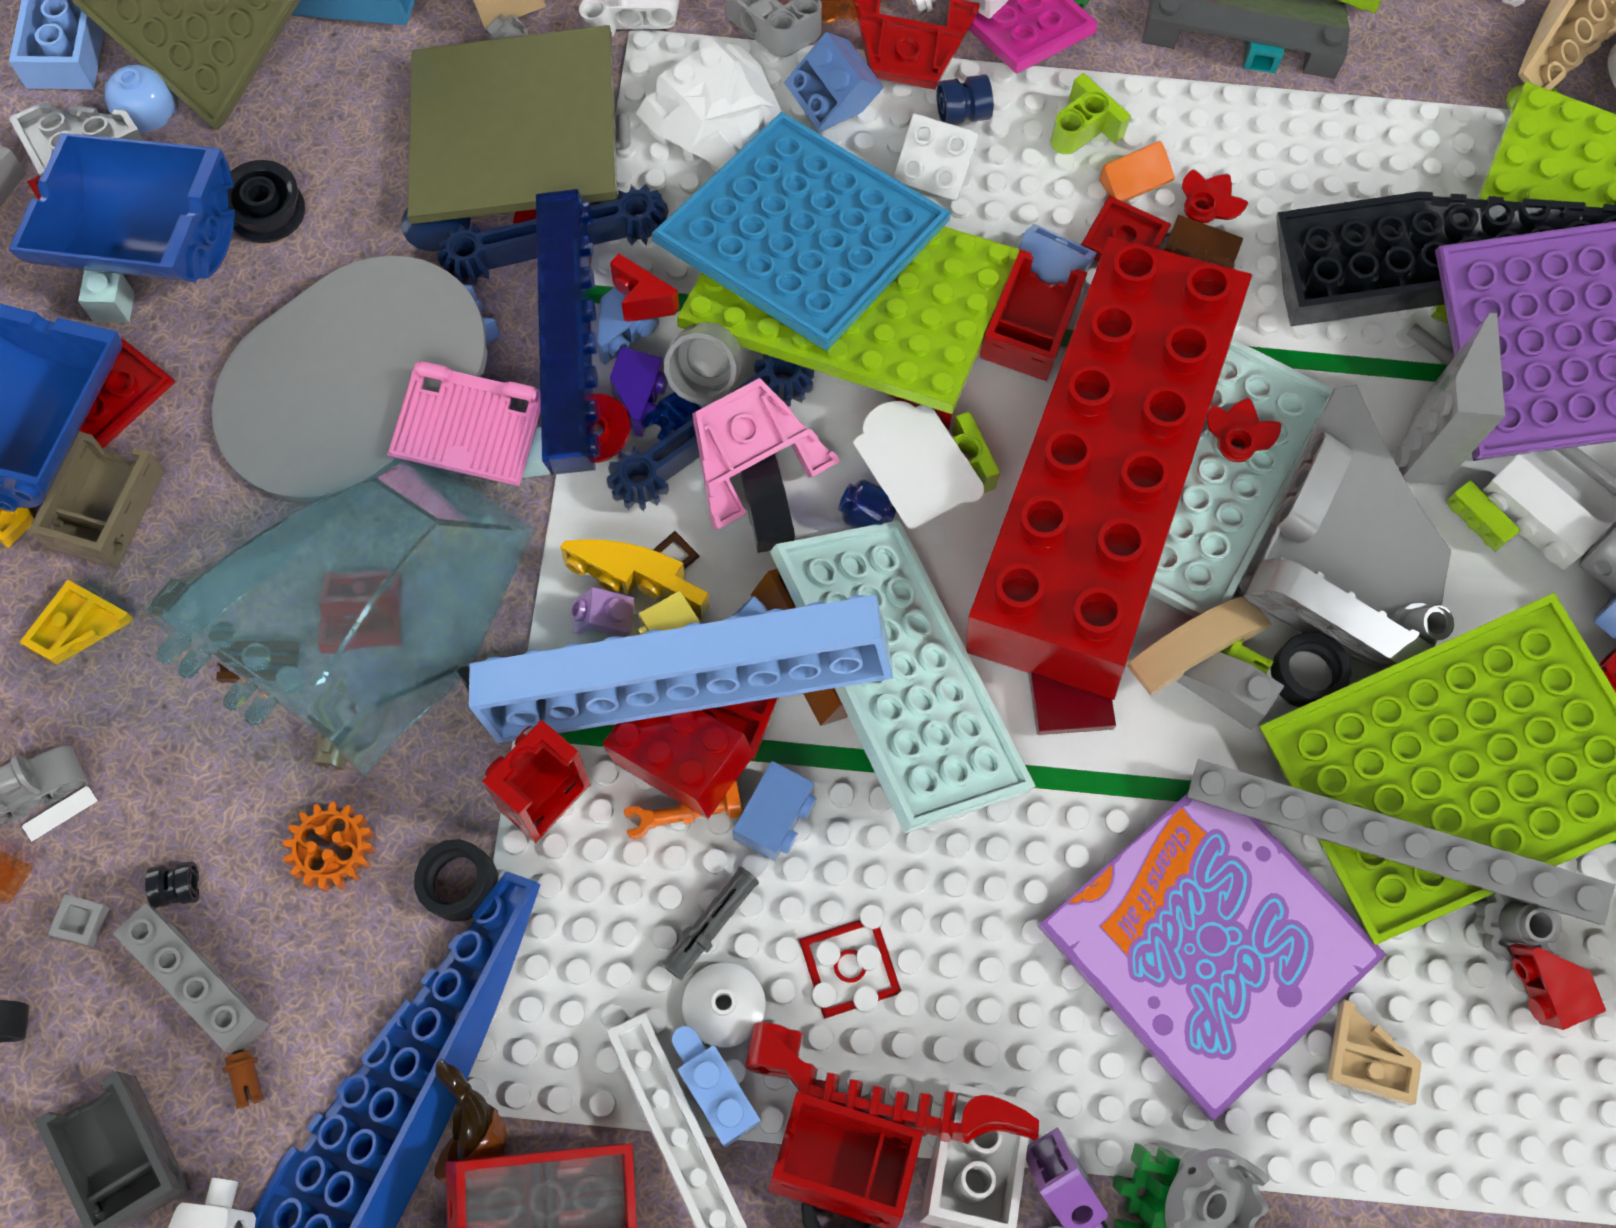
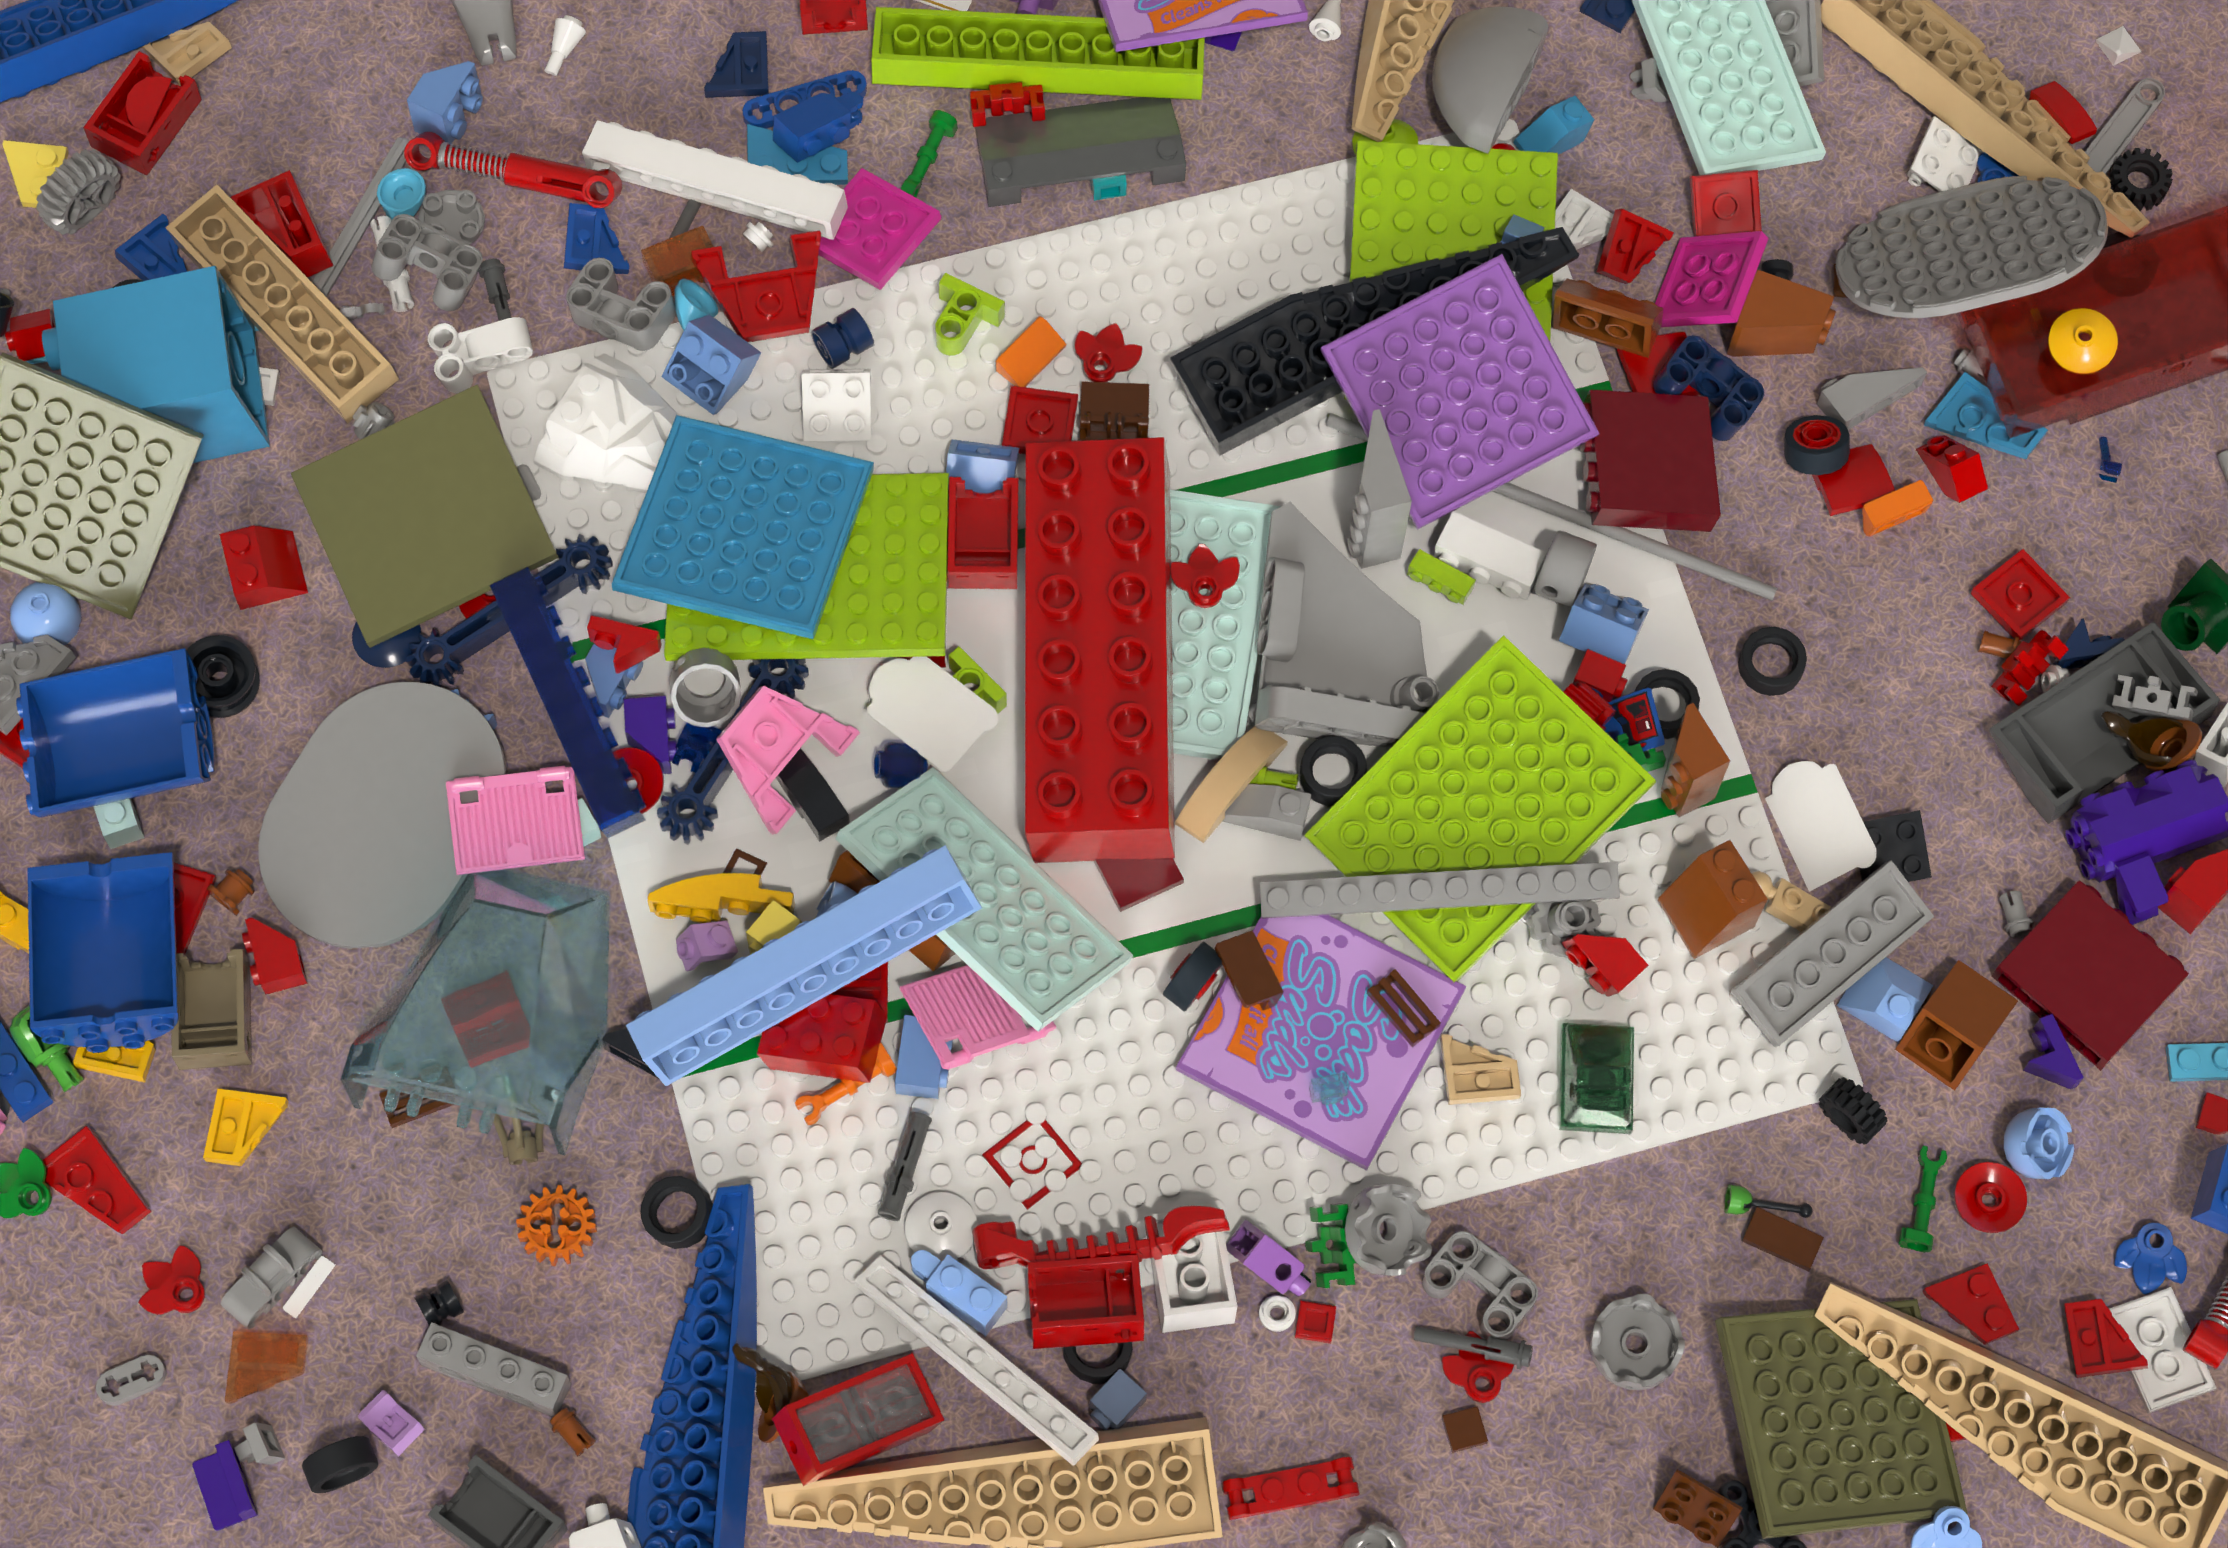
camera: 20 degrees left, 0 degrees up
(62, 993) = (390, 1423): none -> lavender bracket
(78, 921) = (376, 1360): light grey tile -> none
(178, 397) = (232, 890): none -> dark orange brick
(183, 476) = (276, 958): none -> red slope
(349, 120) = (263, 565): none -> red slope
(535, 778) = (712, 1104): red piece -> none
(837, 777) = (967, 1009): none -> bright pink window
(839, 23) = (692, 302): none -> medium azure piece
(1093, 834) = (1193, 976): none -> black wheel
(1157, 851) = (1249, 971): none -> reddish brown panel
(1202, 1016) = (1329, 1088): none -> clear light blue plate
(1326, 950) = (1385, 984): none -> reddish brown tile
(1508, 1118) = (1596, 1078): none -> clear green piece

